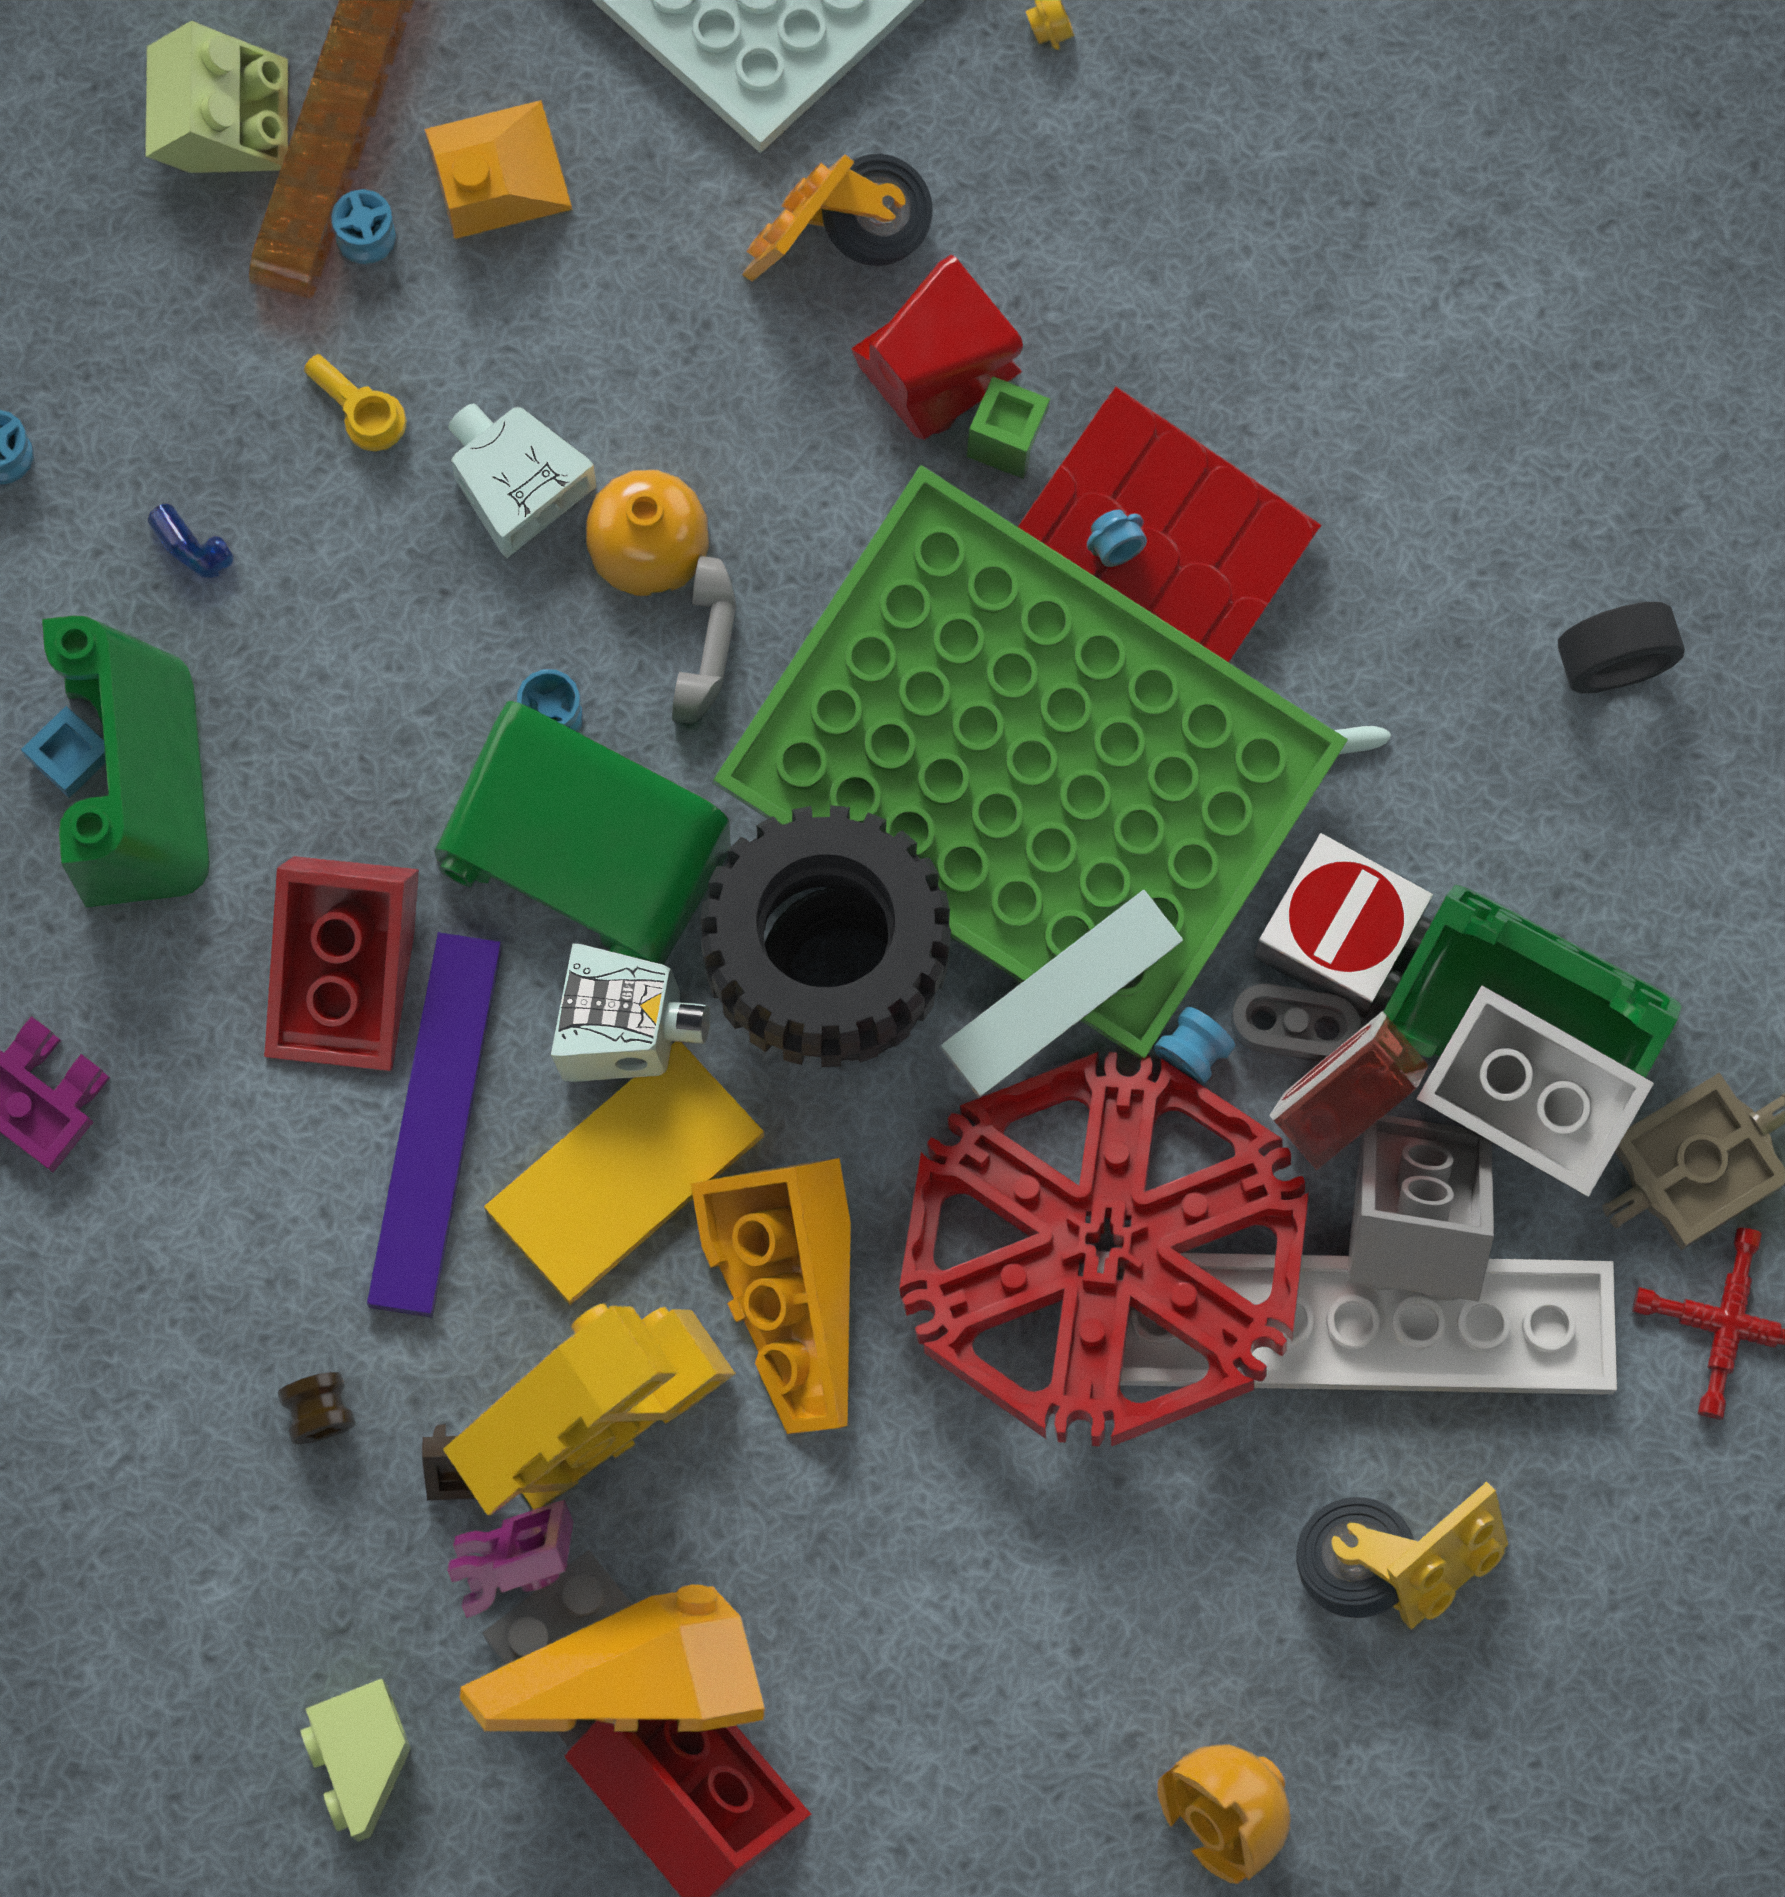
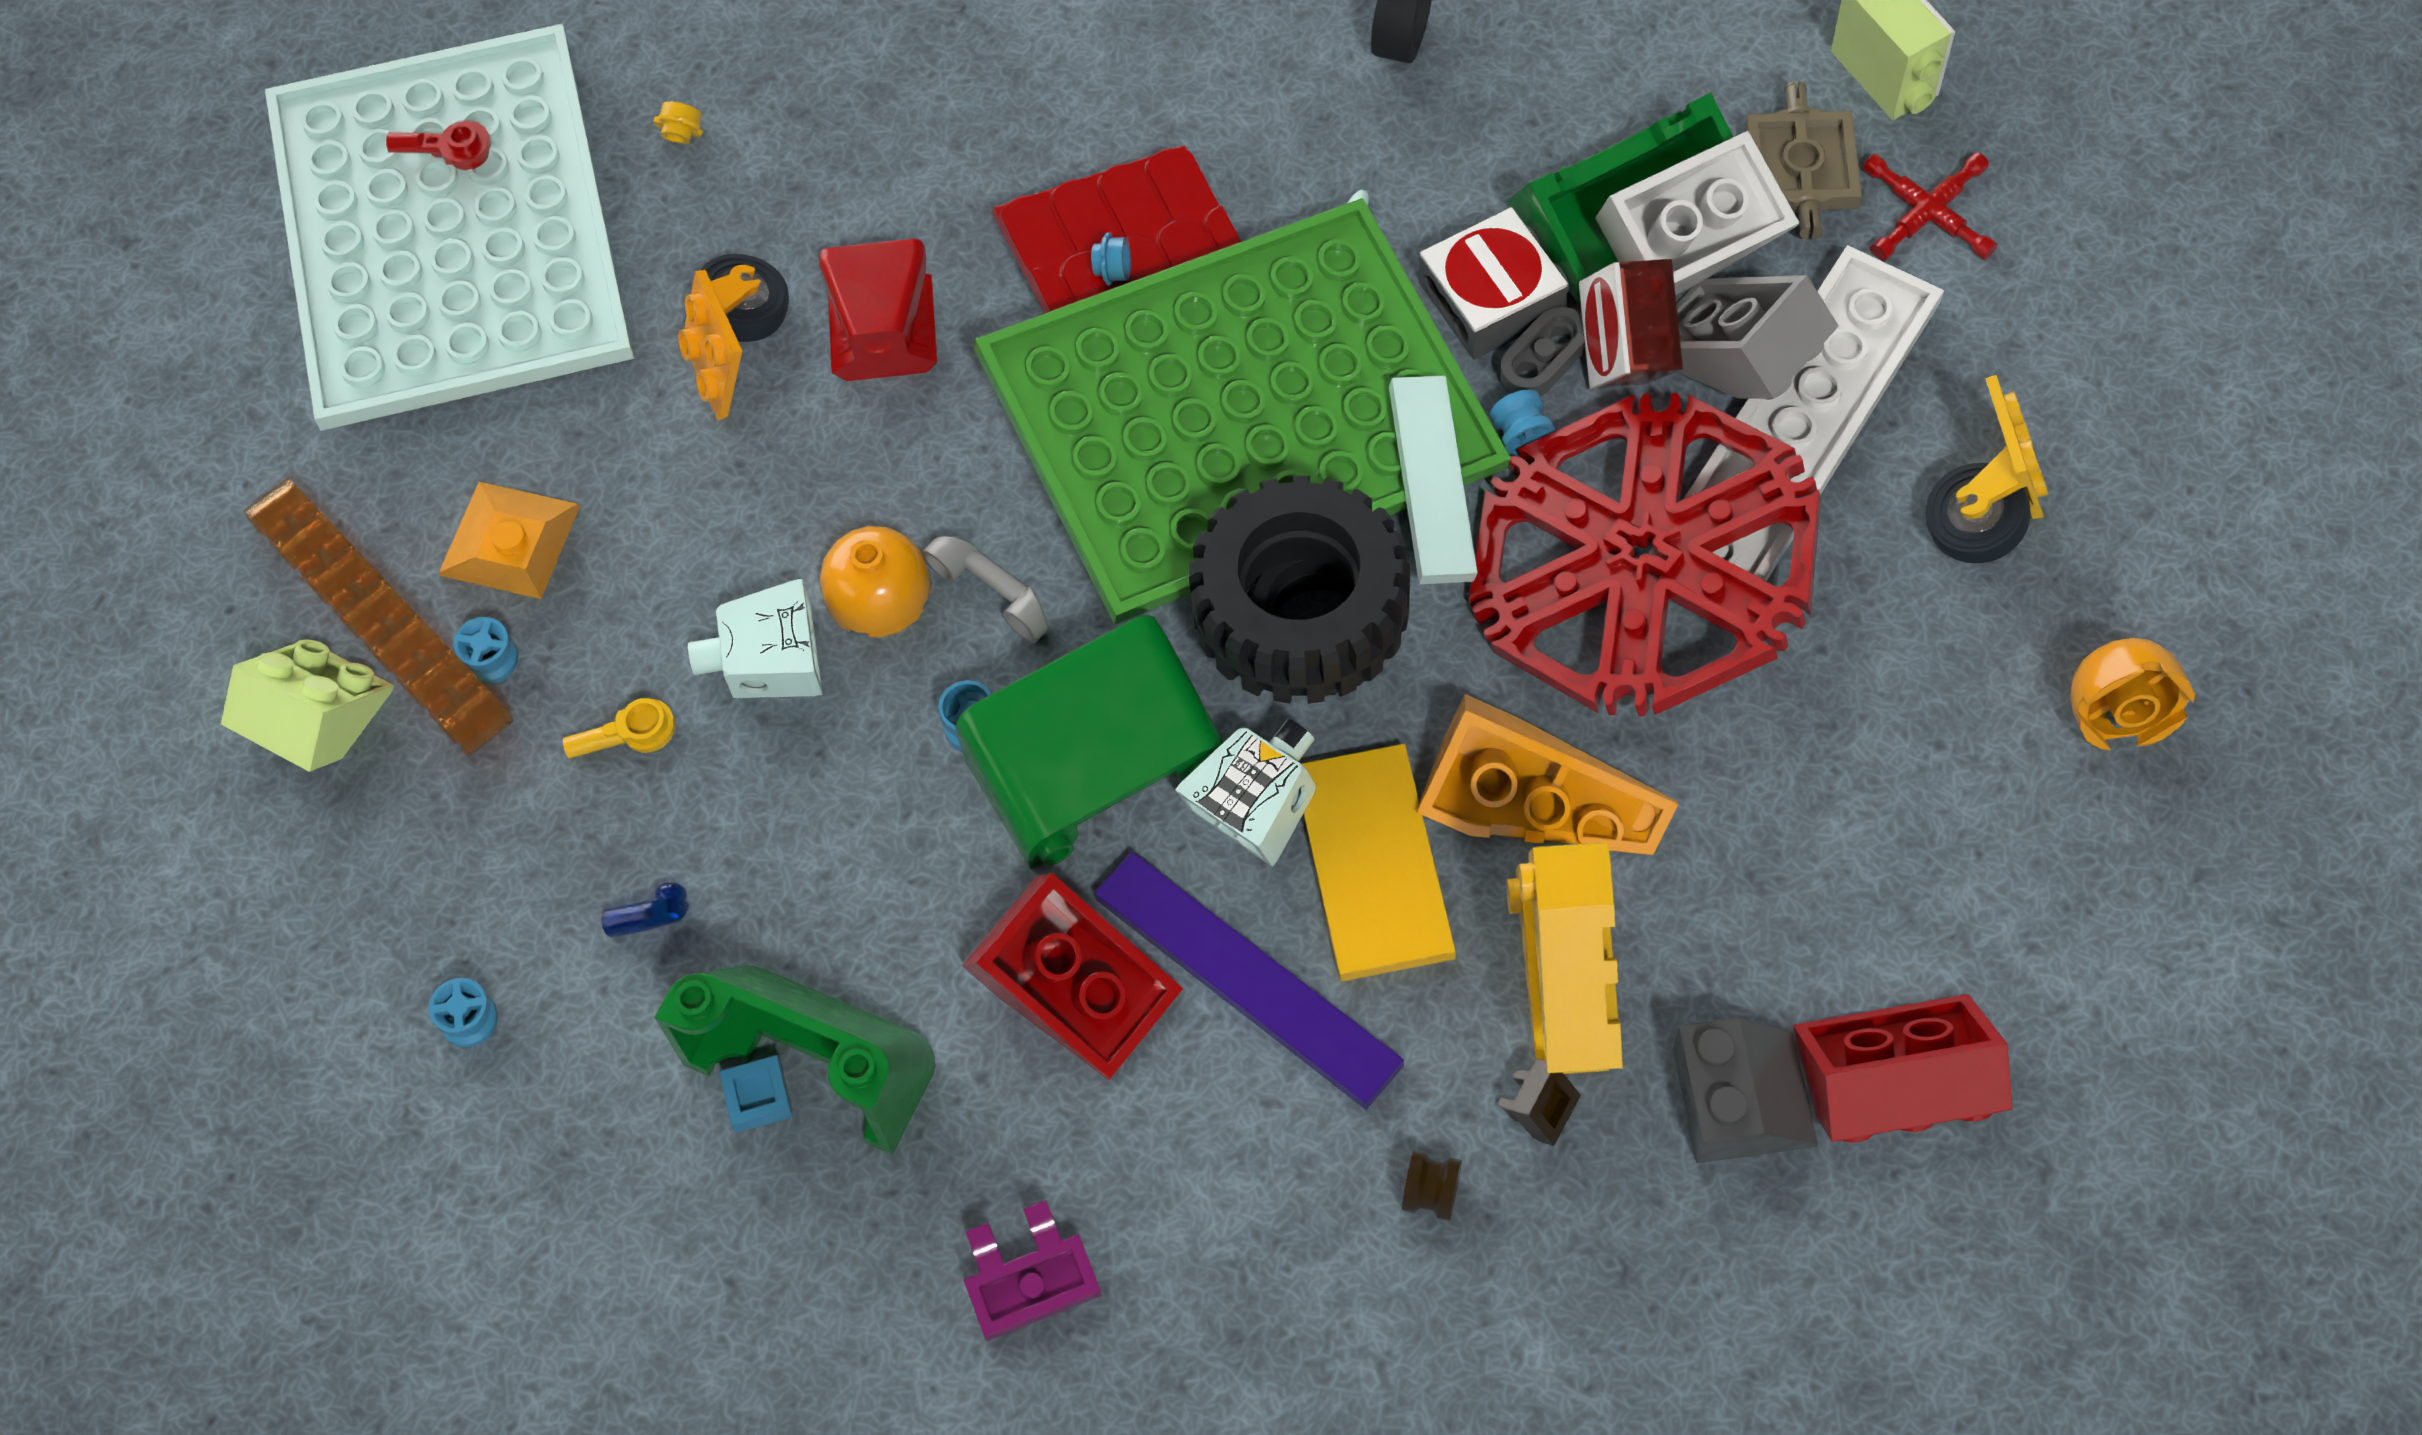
camera: 50 degrees left, 10 degrees down
(363, 1752) = (1742, 1298): yellowish green slope -> none
(522, 1553) = (1646, 1089): magenta plate -> none
(654, 1660) = (1797, 1037): light orange wedge -> none
(1006, 427) = (970, 299): bright green panel -> none

